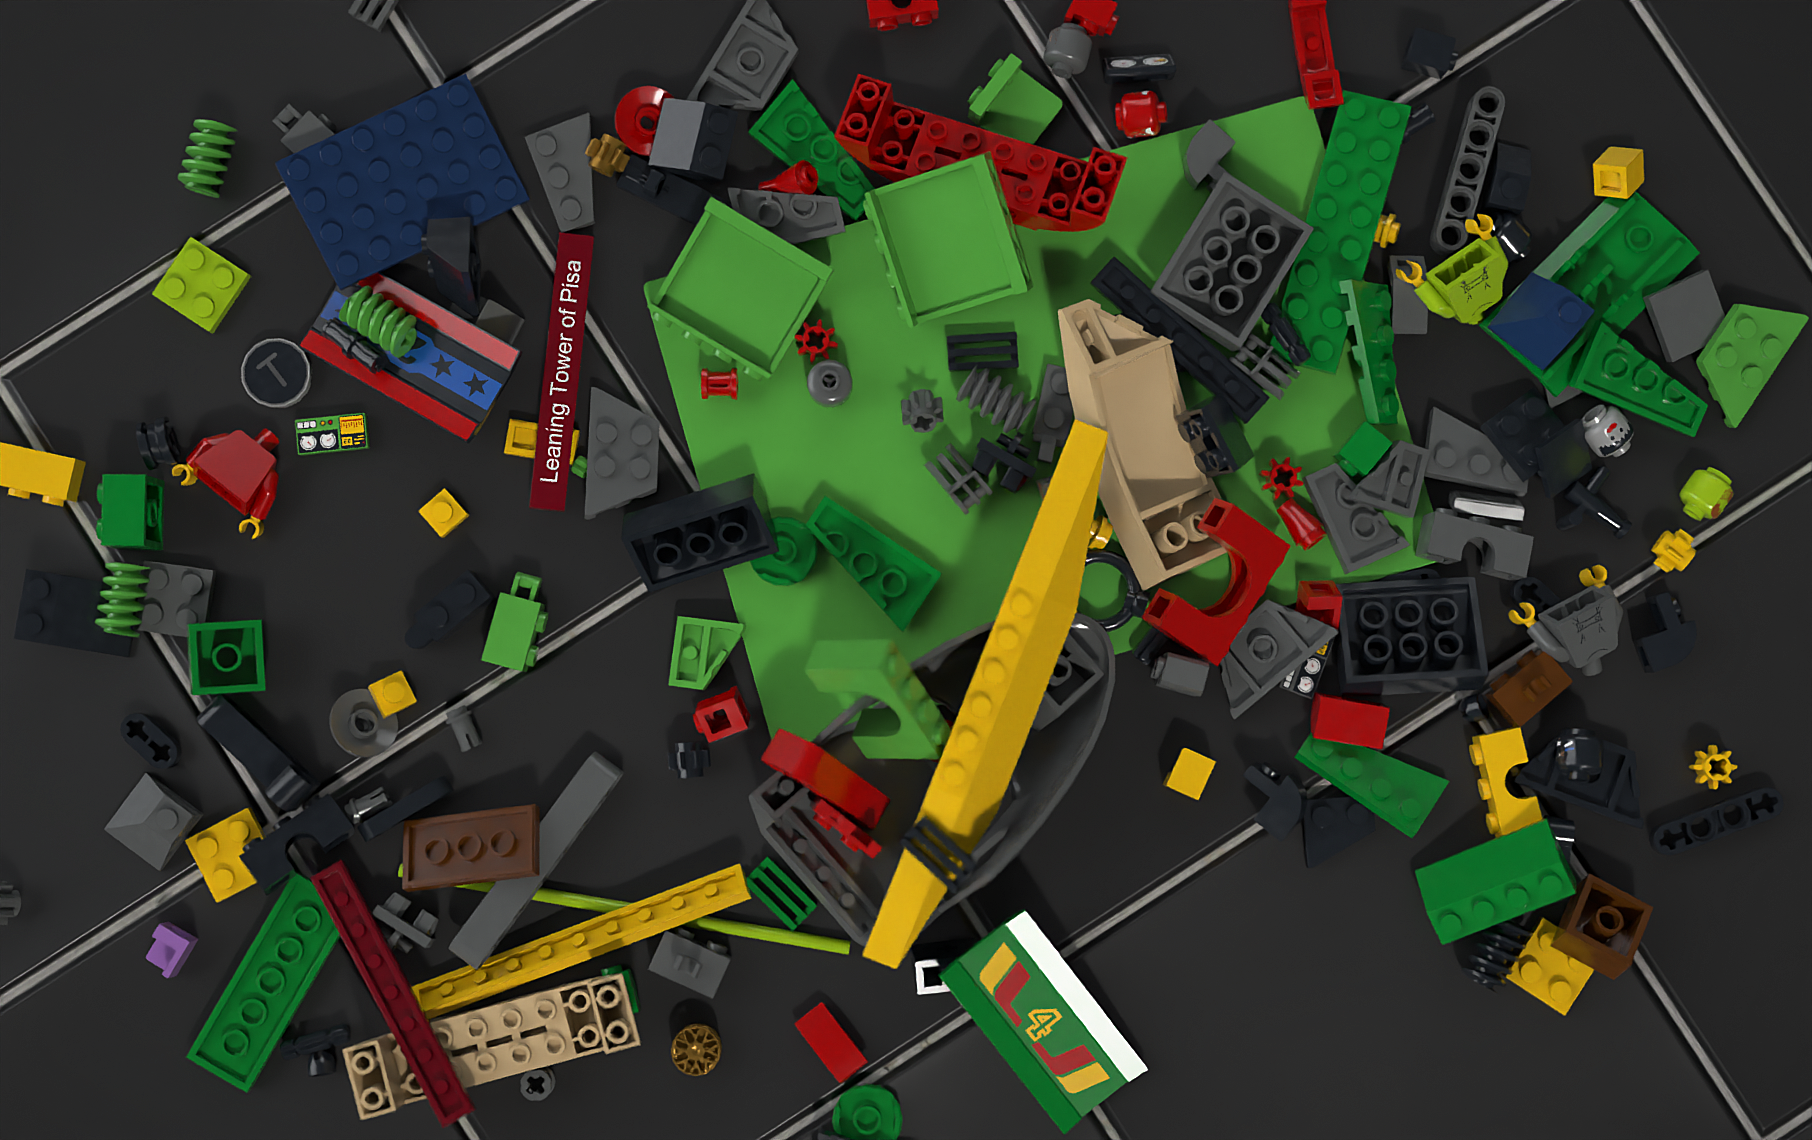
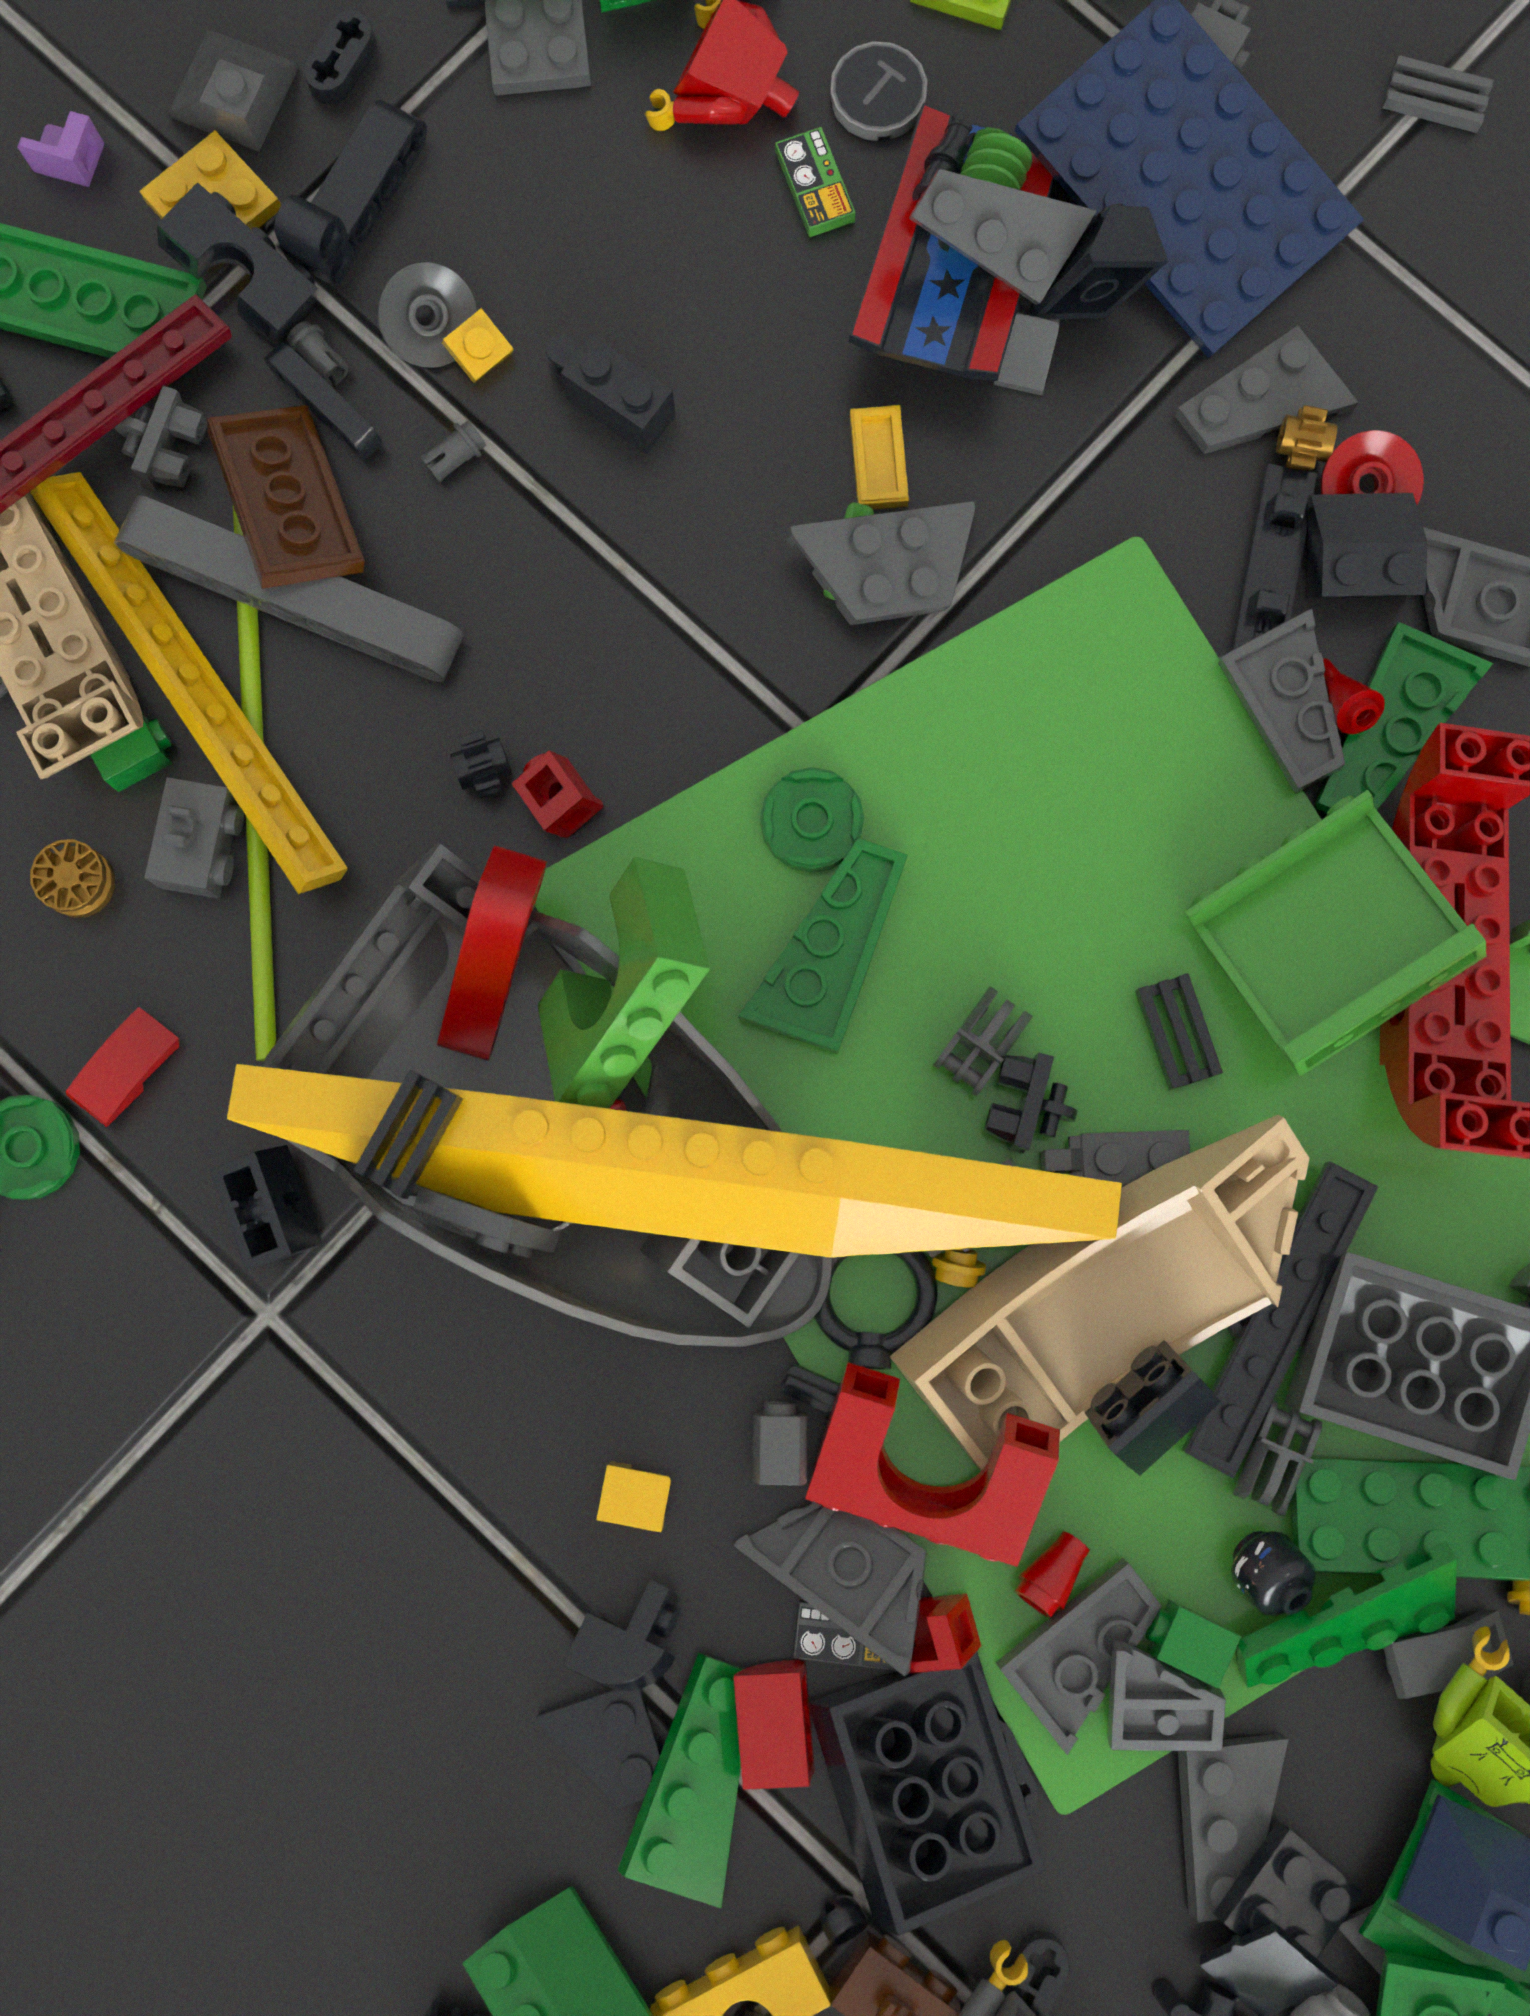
camera: 80 degrees right, 5 degrees down
(225, 657) = (471, 109): green brick -> none
(425, 319) = (1003, 229): none -> dark grey wing
(443, 513) = (745, 352): yellow plate -> none
(516, 626) = (612, 482): bright green brick -> none
(561, 372) = (983, 455): dark red tile -> none
(700, 533) = (807, 695): black slope -> none
(701, 650) = (640, 743): bright green wing -> none
(719, 383) = (1030, 651): red bush -> none
(740, 290) = (1170, 663): bright green panel -> none
(801, 914) = (306, 930): green tile -> none
(813, 351) = (1125, 772): red gear -> none
(829, 395) = (1067, 804): dark grey head -> none
(852, 836) = (427, 1003): red wing -> none
(922, 410) = (1068, 963): dark grey gear -> none
(995, 399) = (1113, 1064): dark grey piece -> none
(1009, 814) = (493, 1229): none -> dark grey wing
(1042, 1020) = (212, 1363): green hinge -> none
(1282, 468) = (1129, 1524): red gear -> none
(1285, 334) = (1337, 1477): black axle -> none
(1332, 389) = (1273, 1573): none -> black head
(1486, 505) = (1160, 1861): tile -> none
(1503, 549) = (1097, 1907): dark grey arch -> none

